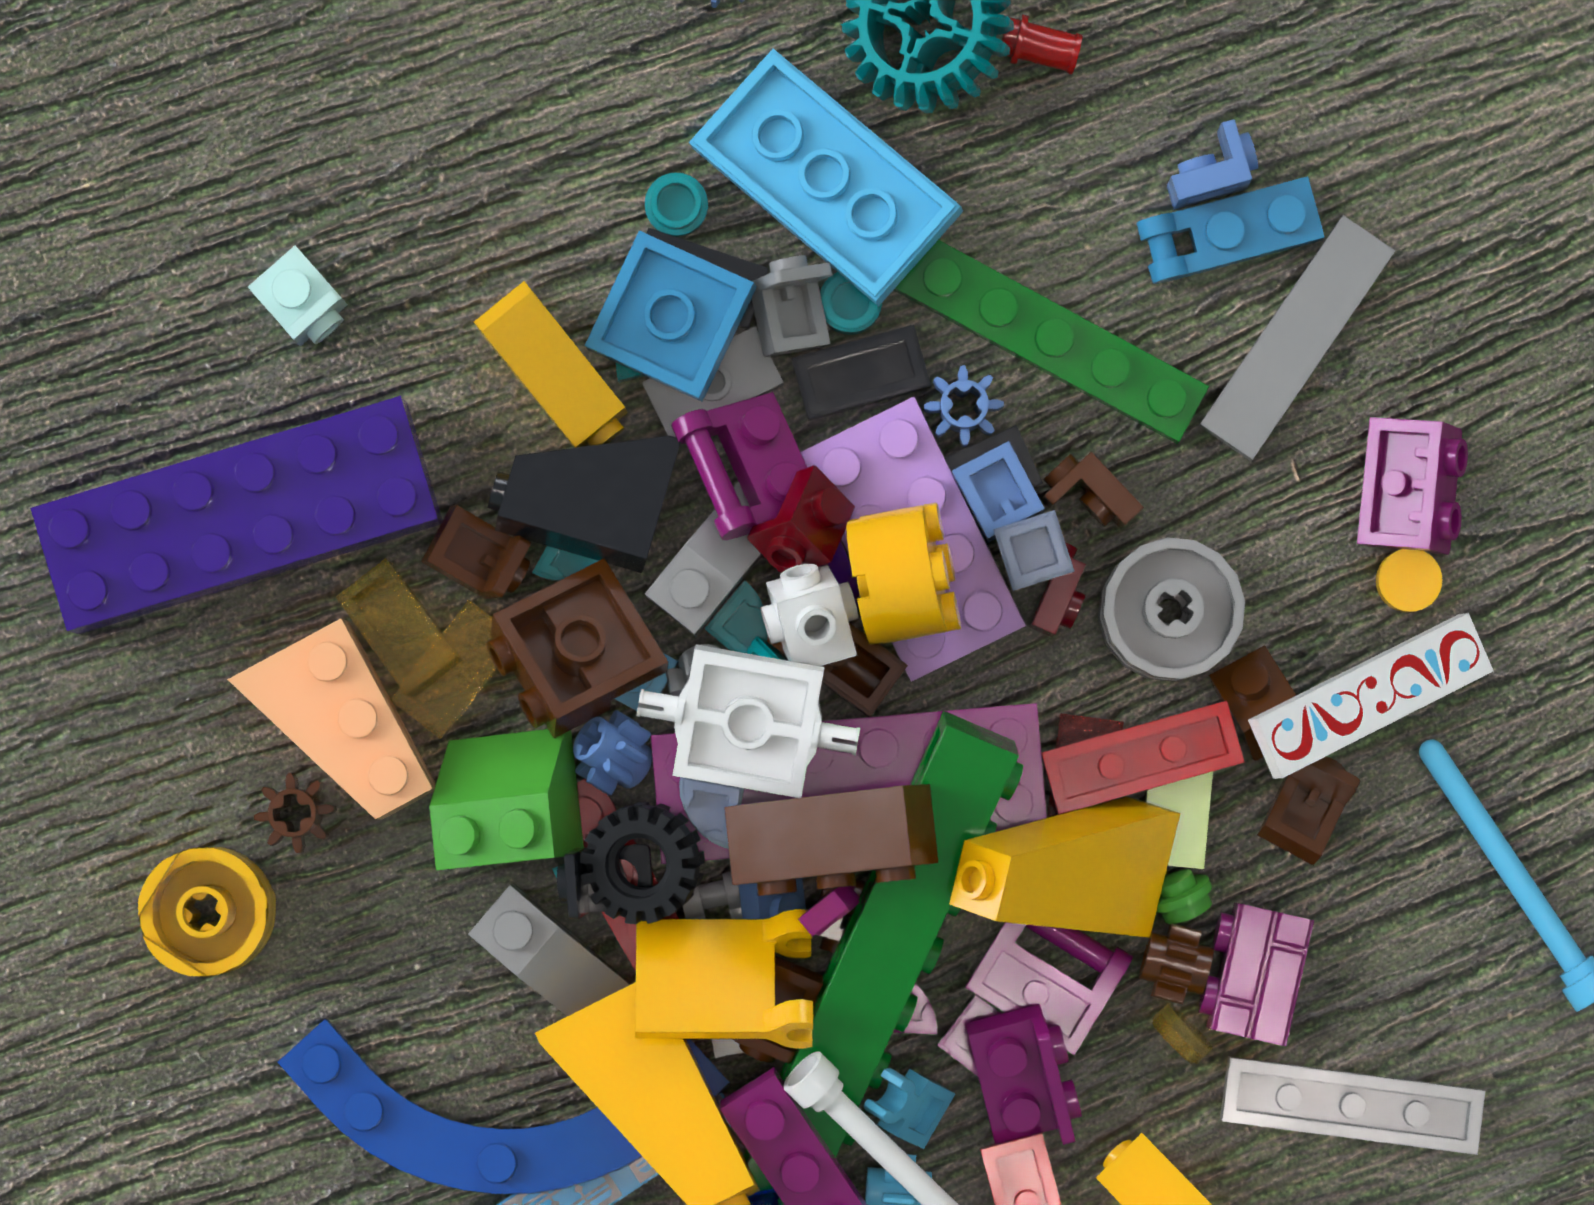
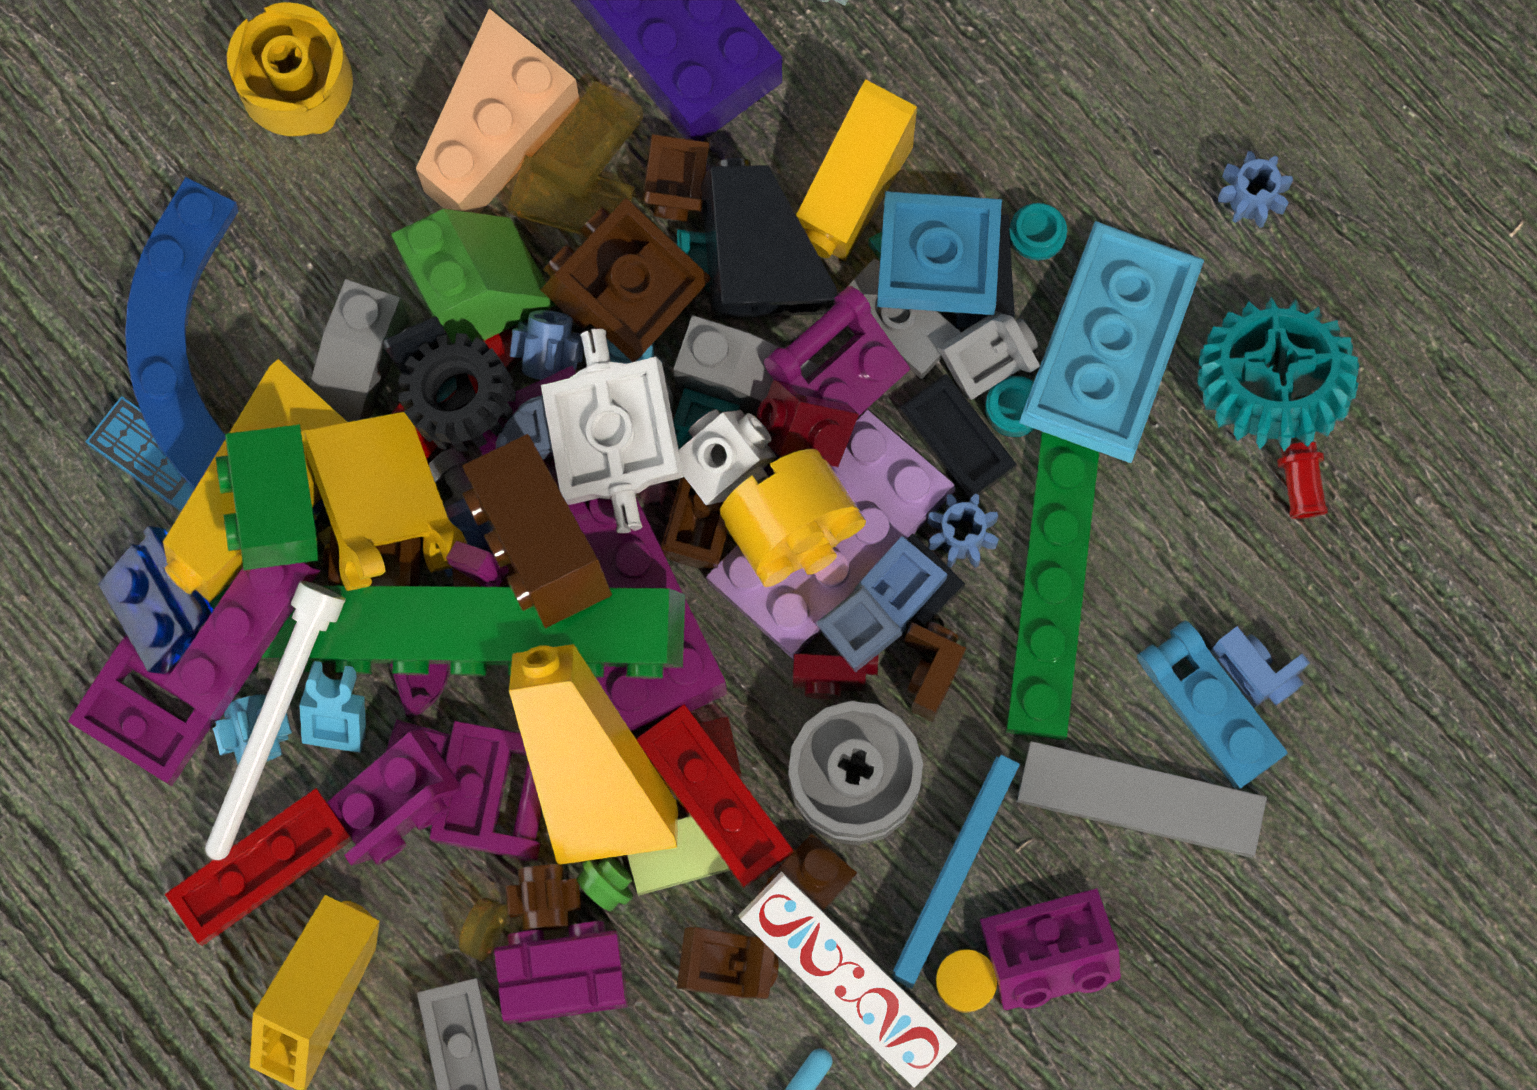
camera: 70 degrees right, 10 degrees down
(282, 800) = (396, 97): reddish brown gear -> none
(697, 1090) = (270, 497): none -> green brick
(1302, 549) = (954, 871): none -> dark azure tile

